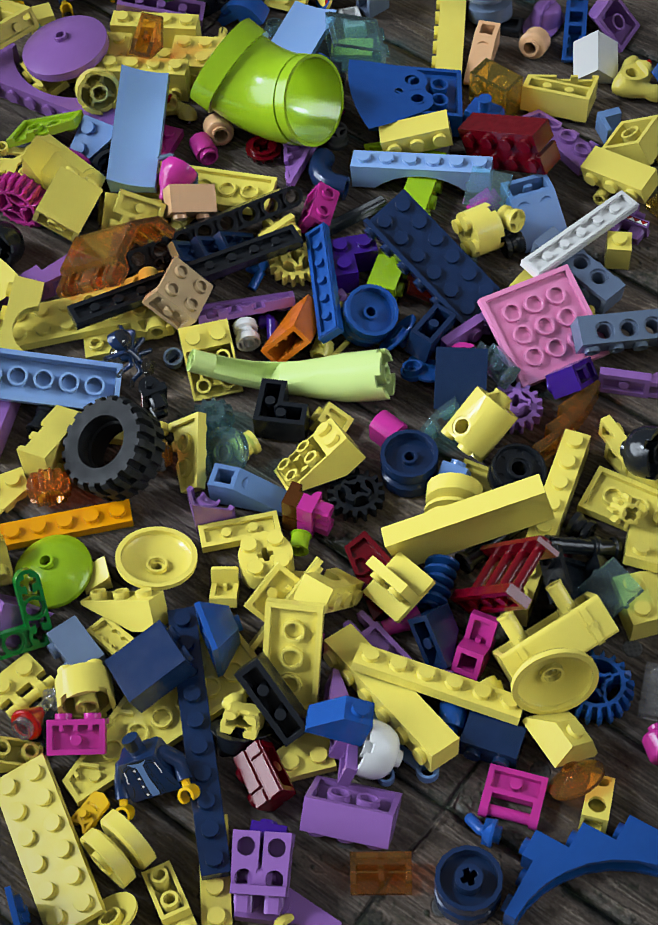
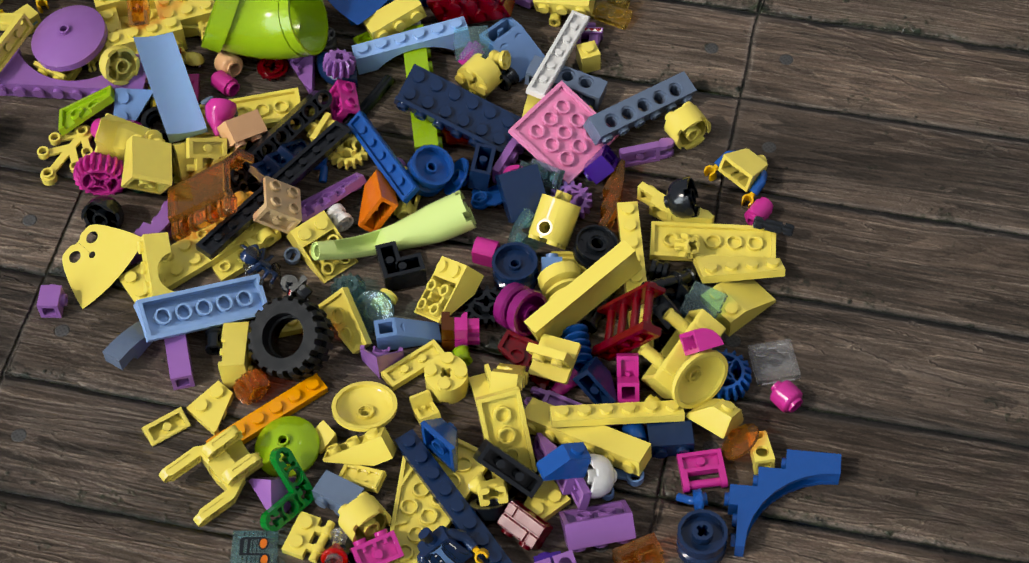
camera: 25 degrees left, 0 degrees up
(151, 665) = (406, 481): dark blue brick -> none
(267, 322) = (353, 203): dark purple arm -> none
(277, 584) = (463, 402): light yellow bracket -> none
(328, 164) = (339, 63): none -> medium lavender gear
(330, 410) = (434, 255): light yellow bracket -> none
(352, 256) = (393, 128): dark purple brick -> none
(383, 504) = (515, 305): none -> magenta wheel
(572, 634) = (699, 340): none -> dark pink brick

